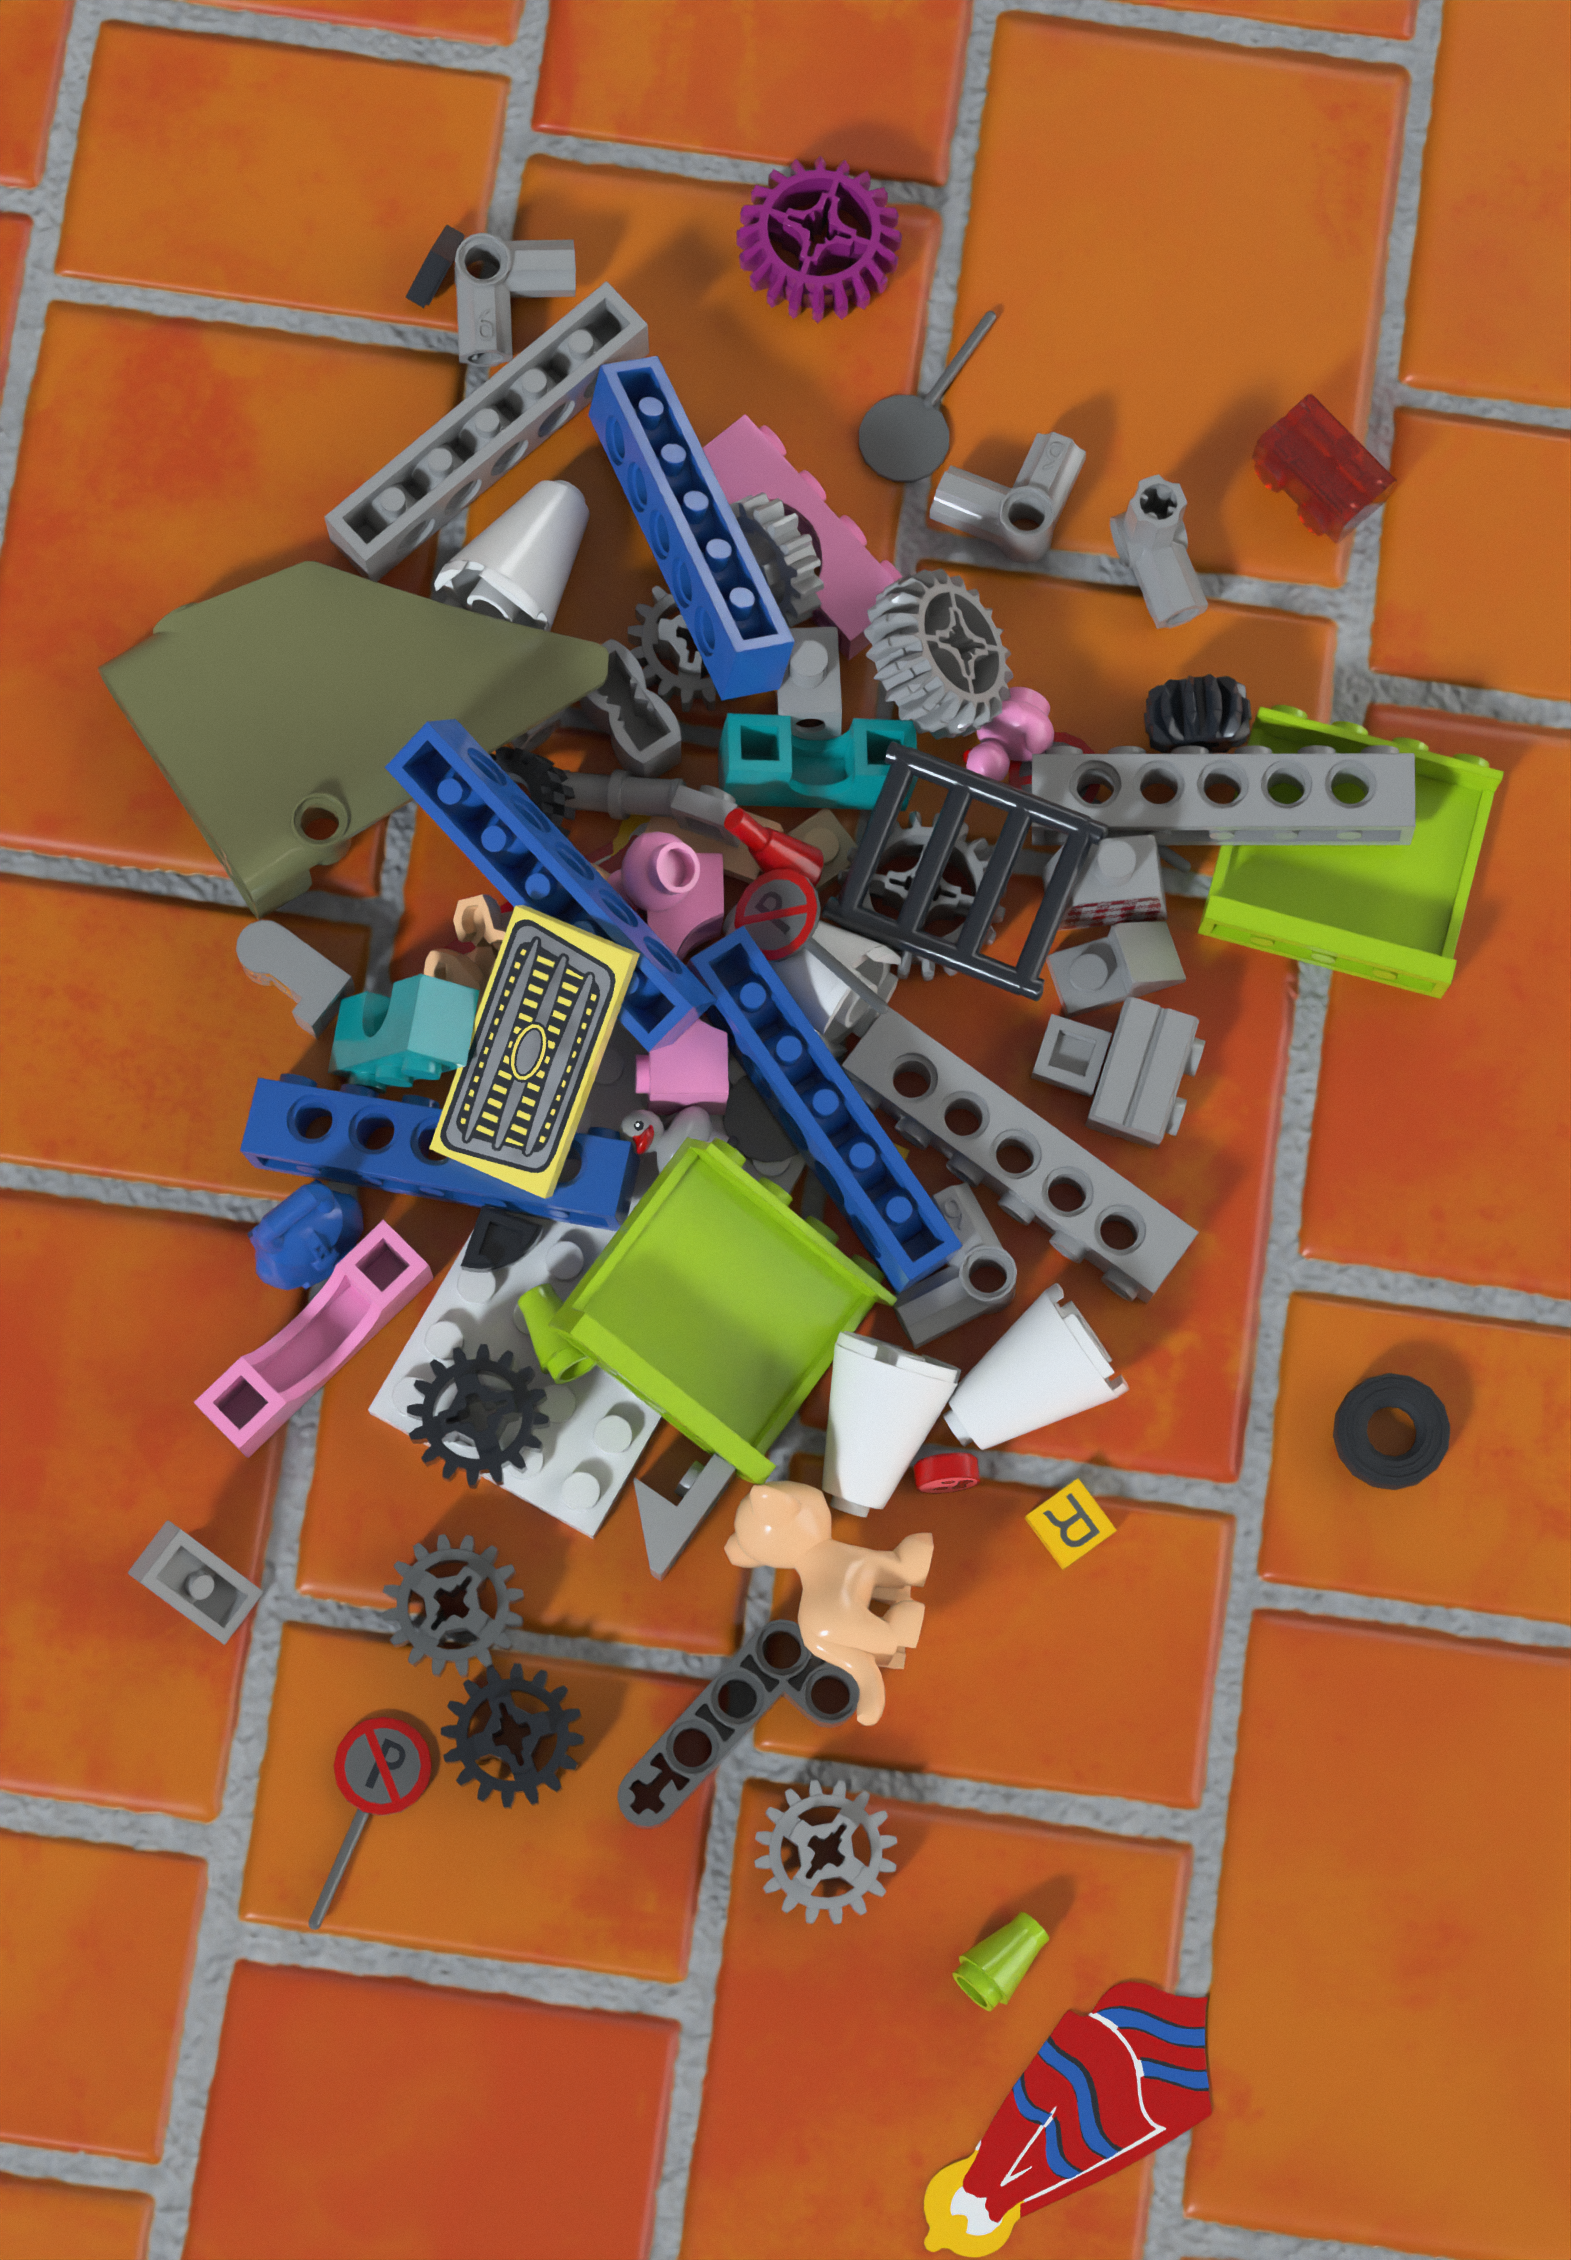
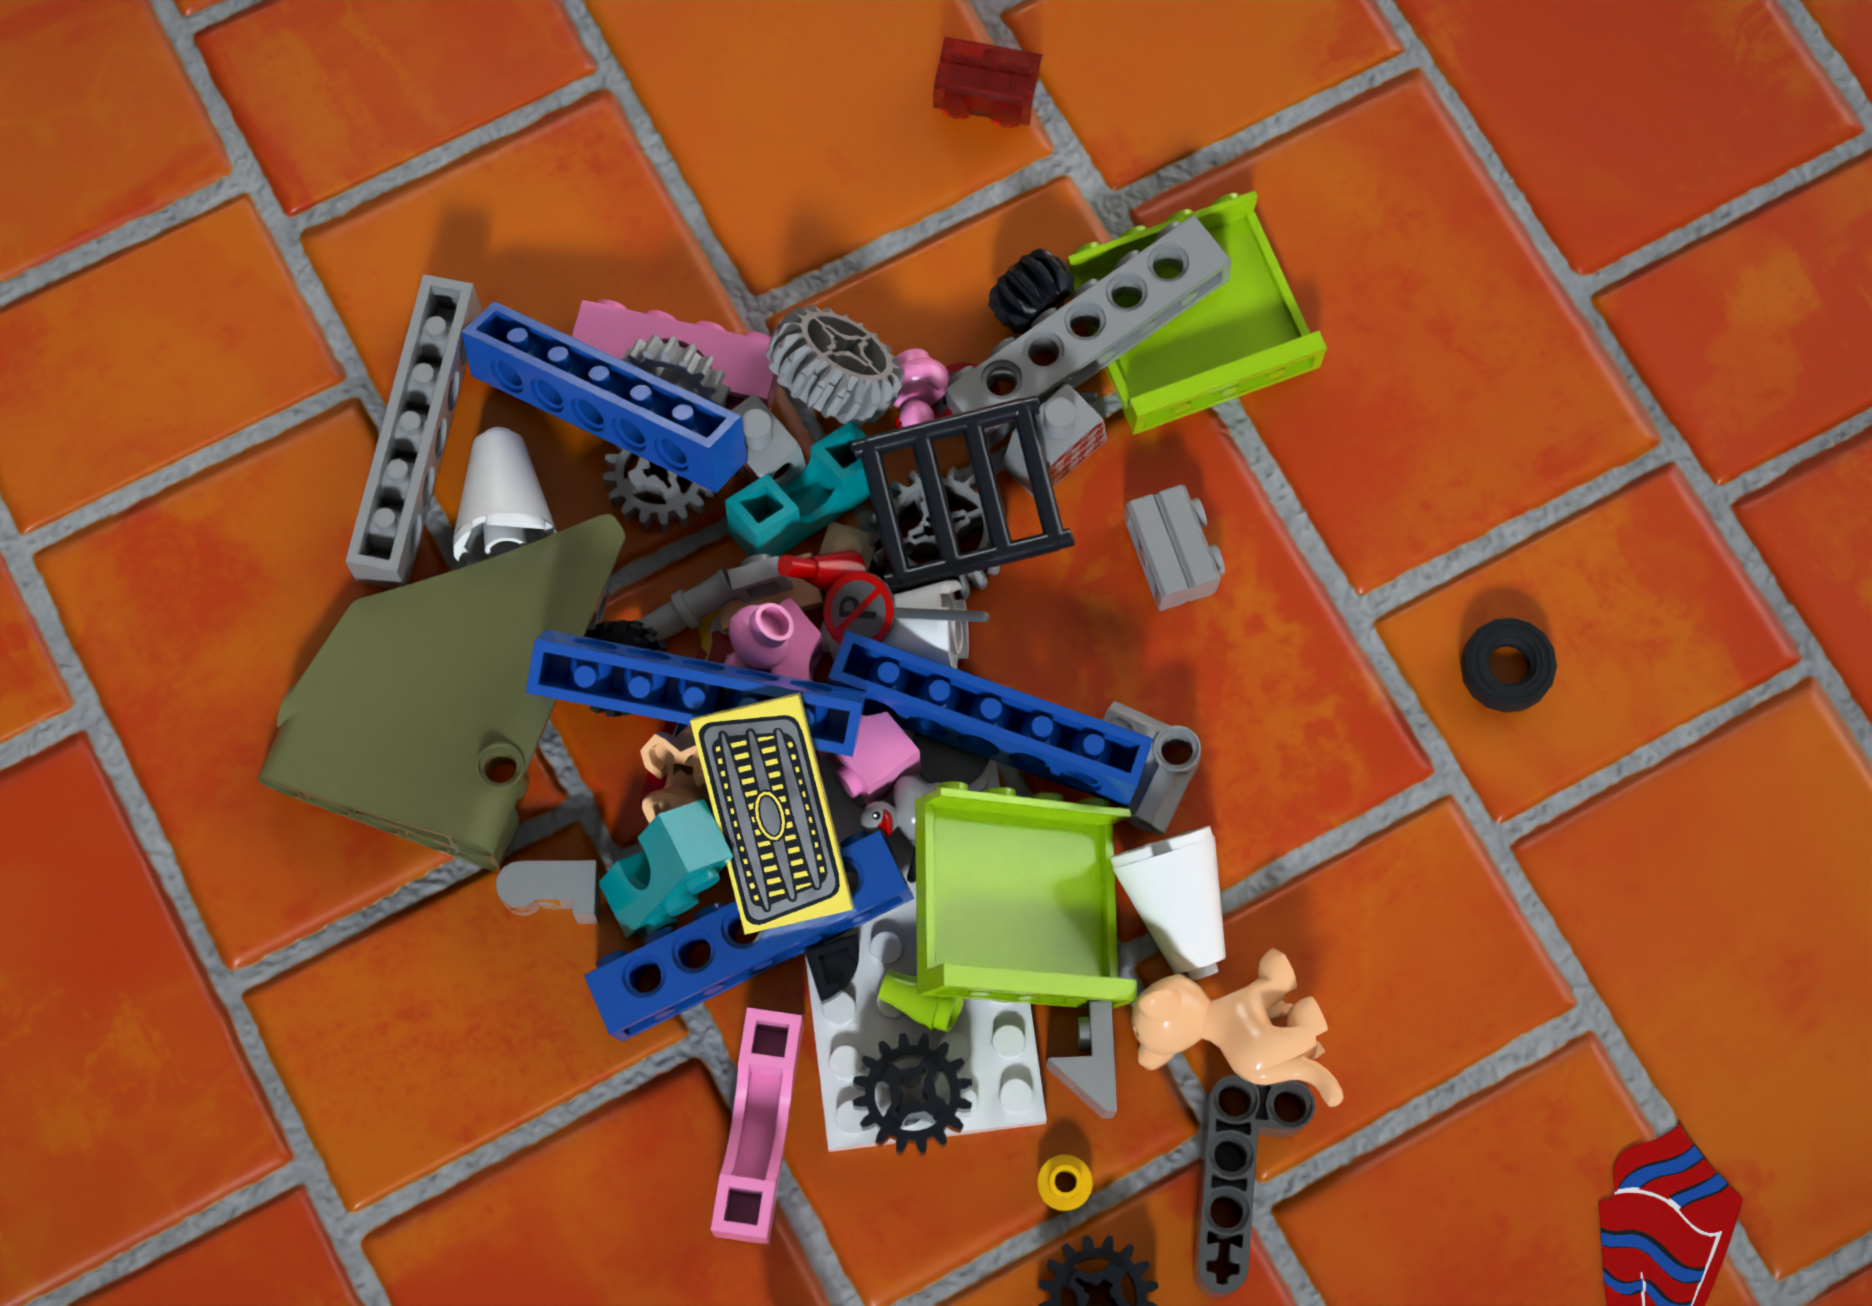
camera: 35 degrees left, 5 degrees down
(306, 1236) = (698, 1062): blue piece -> none
(430, 1589) = (1016, 1238): dark grey gear -> none
(435, 267) = (292, 348): black tile -> none
(484, 305) = (346, 350): light grey piece -> none
(565, 1628) = (1064, 1200): none -> yellow plate
(639, 721) = (663, 552): light grey brick -> none
(775, 219) = (578, 140): magenta gear -> none
(851, 1869) = (1389, 1215): light grey gear -> none
(899, 1047) = (1262, 644): light grey brick -> none
(907, 435) = (695, 245): dark grey piece -> none
(946, 1470) = (1248, 902): red tile -> none
(991, 508) = (791, 252): light grey piece -> none
(999, 1962) = (1534, 1204): lime cone -> none
(1033, 1376) = (1258, 794): white cone -> none
(1070, 1524) = (1352, 877): yellow tile -> none
(1071, 1055) = (1116, 570): light grey plate -> none
(1126, 963) = (1100, 493): light grey slope -> none
(1154, 545) = (915, 203): light grey piece -> none

